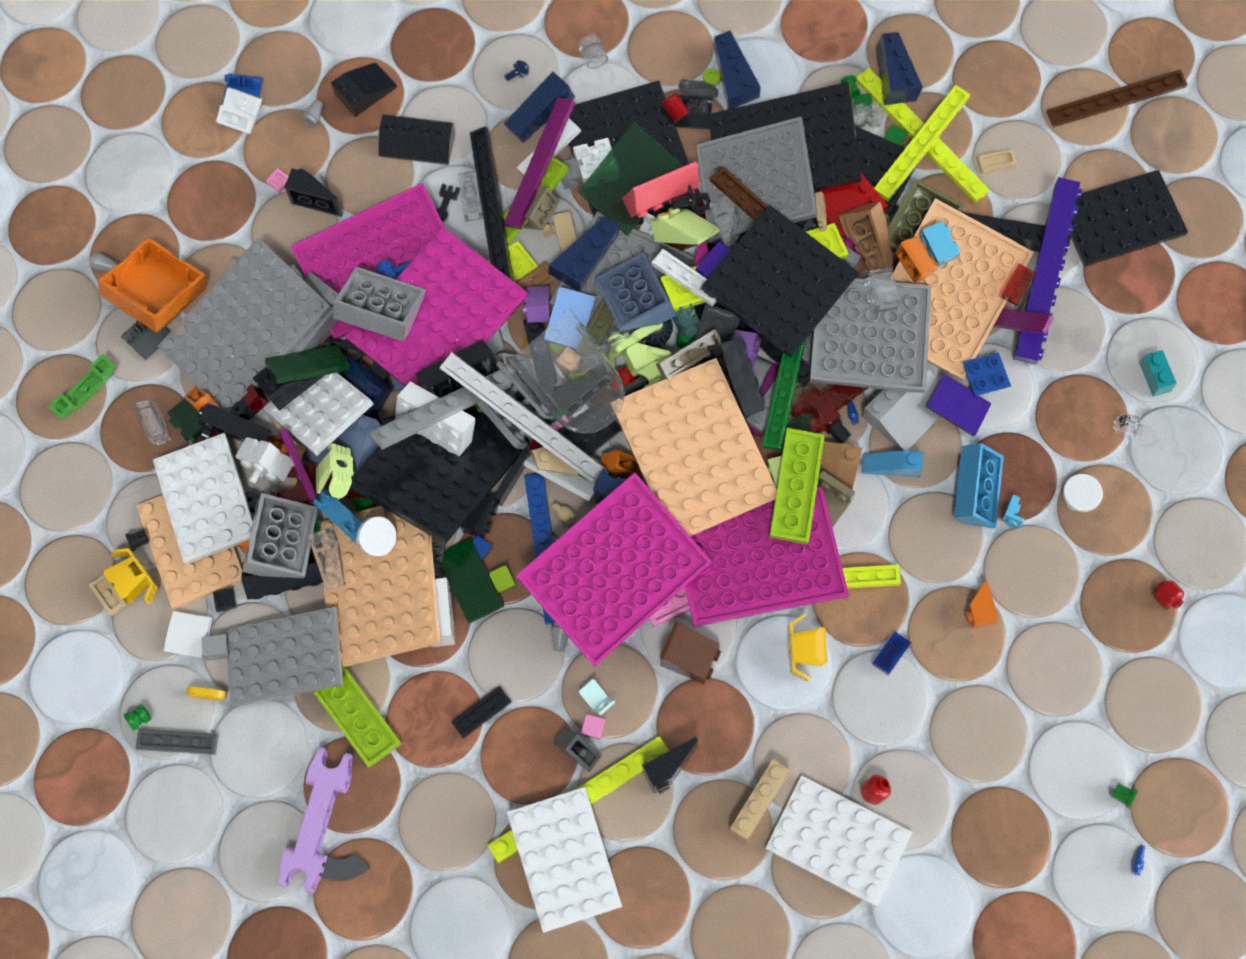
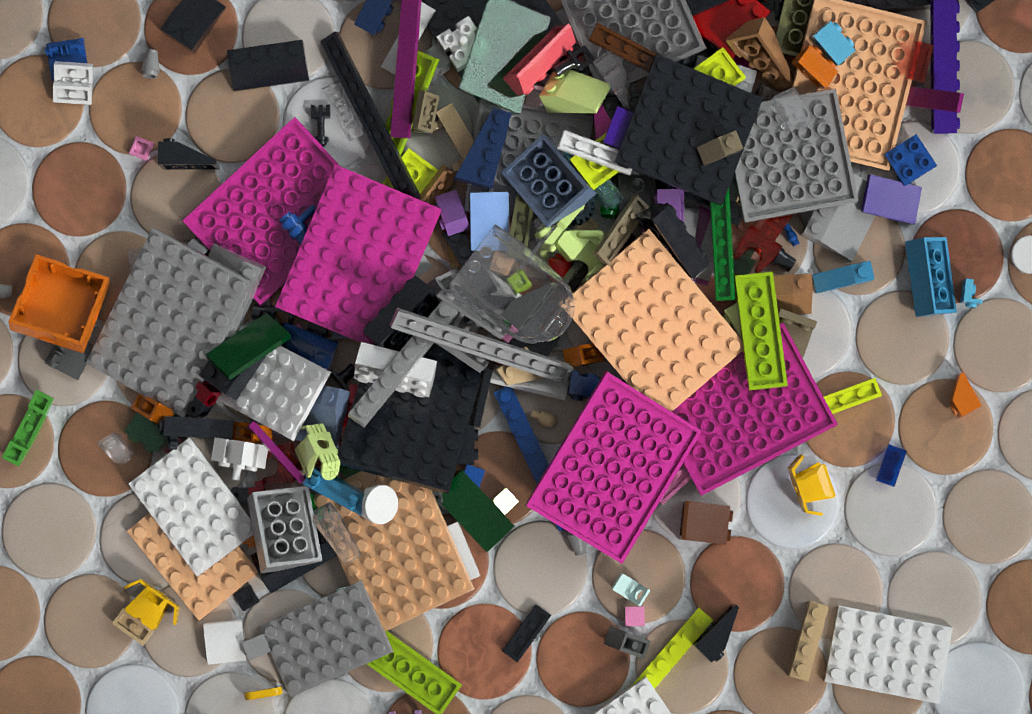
camera: 20 degrees left, 15 degrees up
(137, 539) = (141, 564): black bush -> none
(378, 304) = (300, 266): light grey slope -> none
(805, 300) = (720, 148): none -> dark tan slope
(821, 211) = (707, 40): tan tile -> none
(875, 789) = (910, 599): red head -> none

